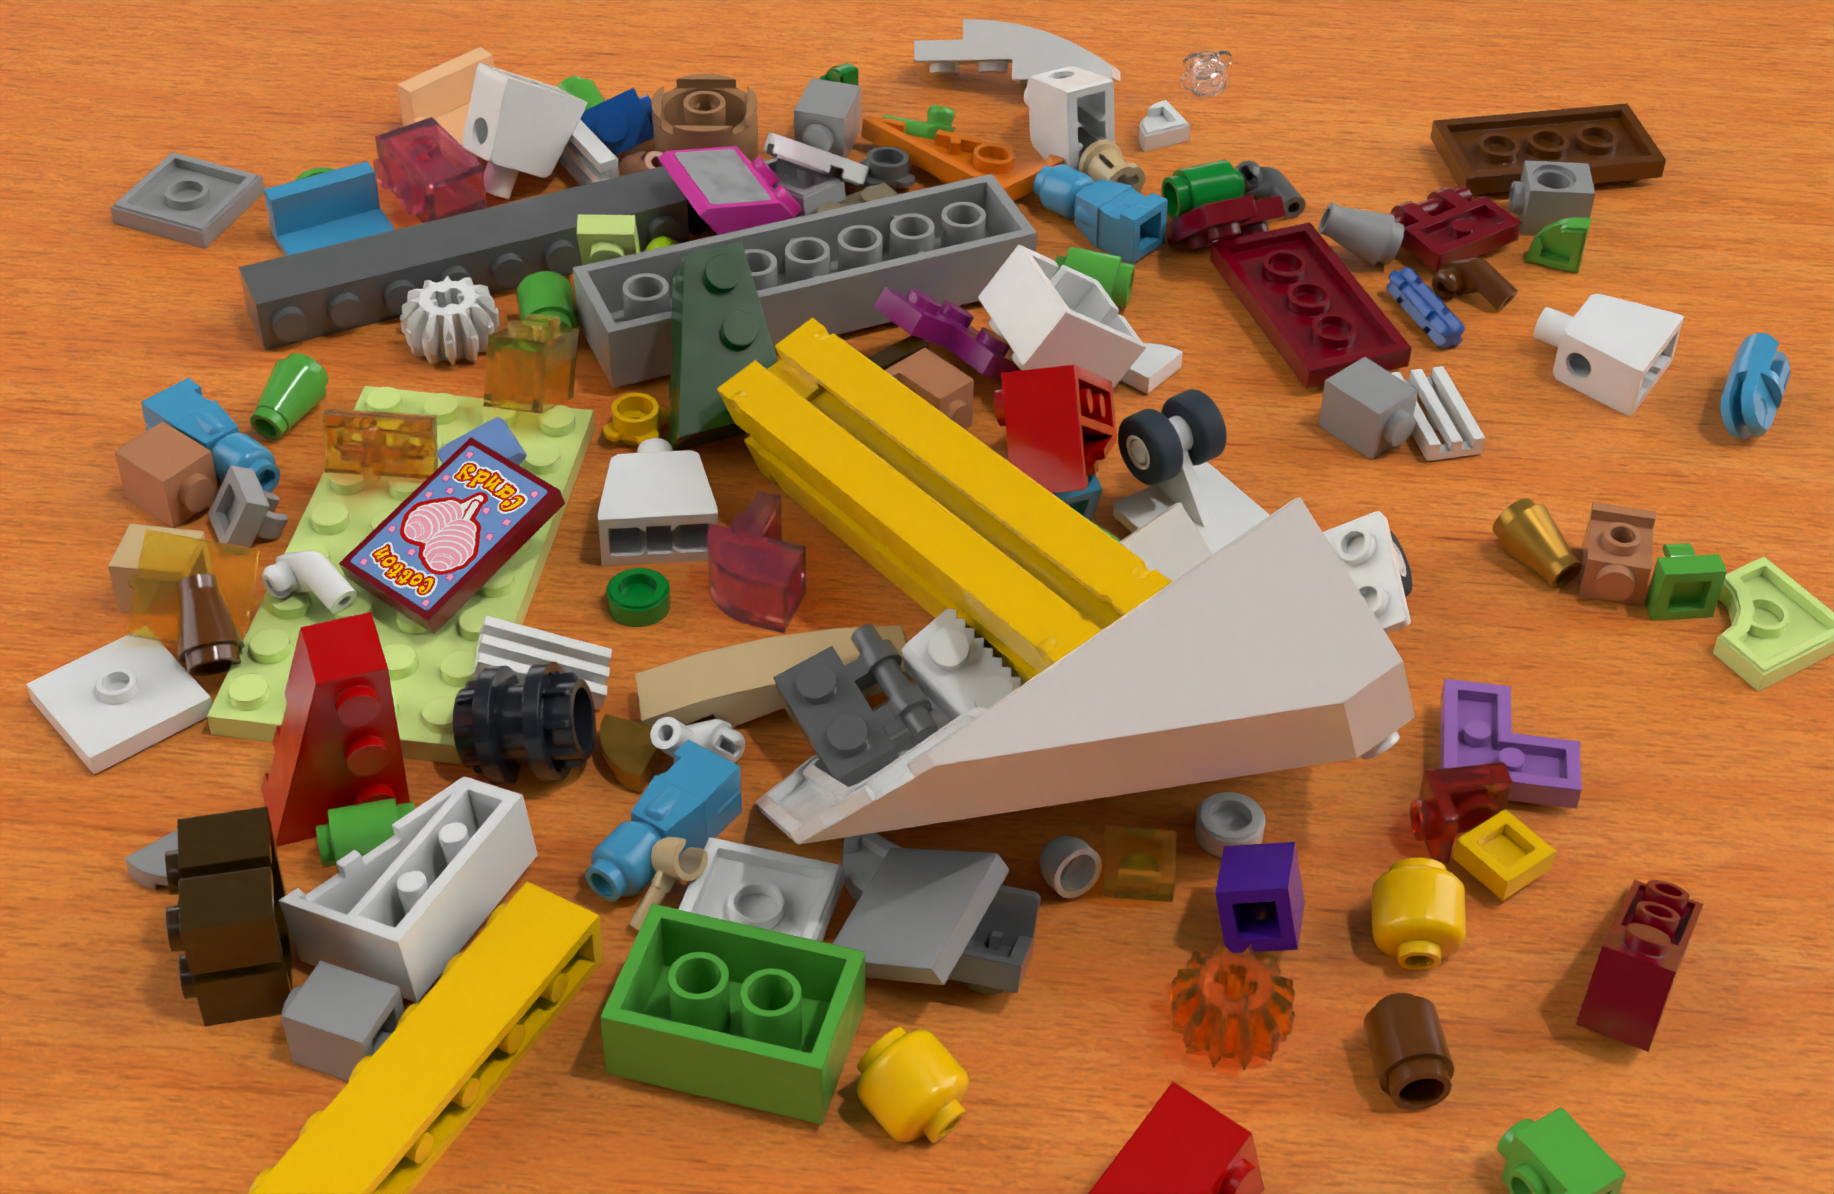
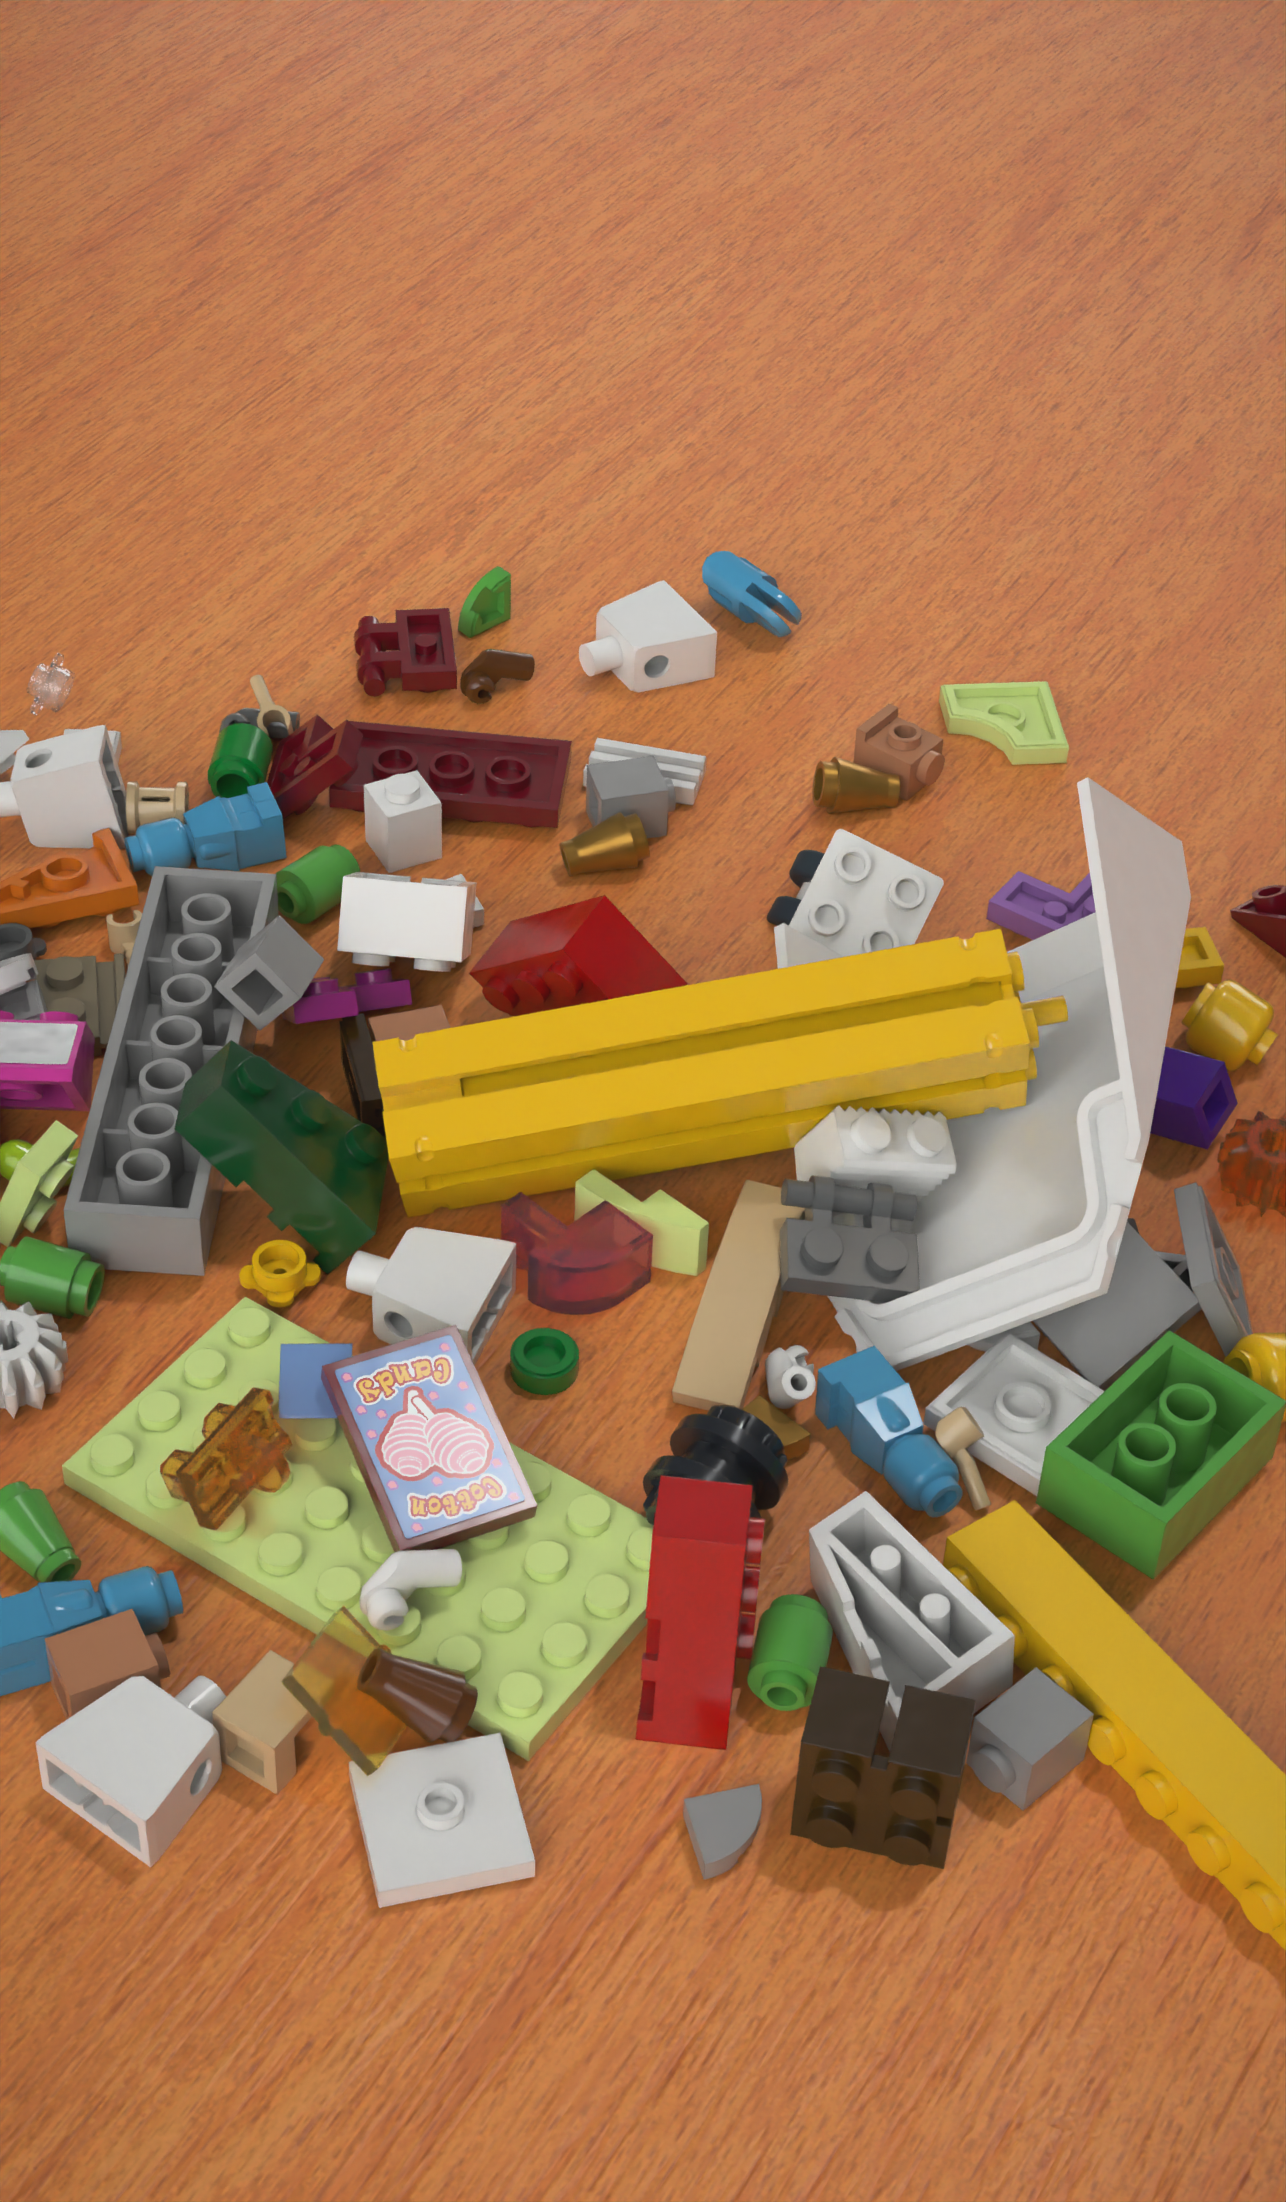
camera: 65 degrees left, 0 degrees up
(83, 517) = (136, 1761): none -> white torso
(245, 510) = (214, 1627): light grey tile -> none
(522, 646) = (606, 1449): white tile -> none
(531, 365) = (183, 1303): clear yellow brick -> none
(821, 580) = (677, 1231): none -> yellowish green slope
(894, 258) = (269, 973): none -> light grey brick
(996, 980) = (1212, 1268): none -> light grey tile
(1162, 453) = (695, 946): plate -> none
(1208, 293) = (403, 821): none -> white brick
(1268, 183) = (268, 710): none -> tan hand
(1302, 421) = (607, 846): none -> pearl gold cone
(1364, 233) = (391, 697): light grey cone -> none
(1425, 308) = (503, 714): blue axle -> none
(1492, 149) = (344, 552): reddish brown plate -> none
(1551, 193) = (426, 575): light grey brick -> none
(1684, 584) = (955, 729): bright green tile -> none

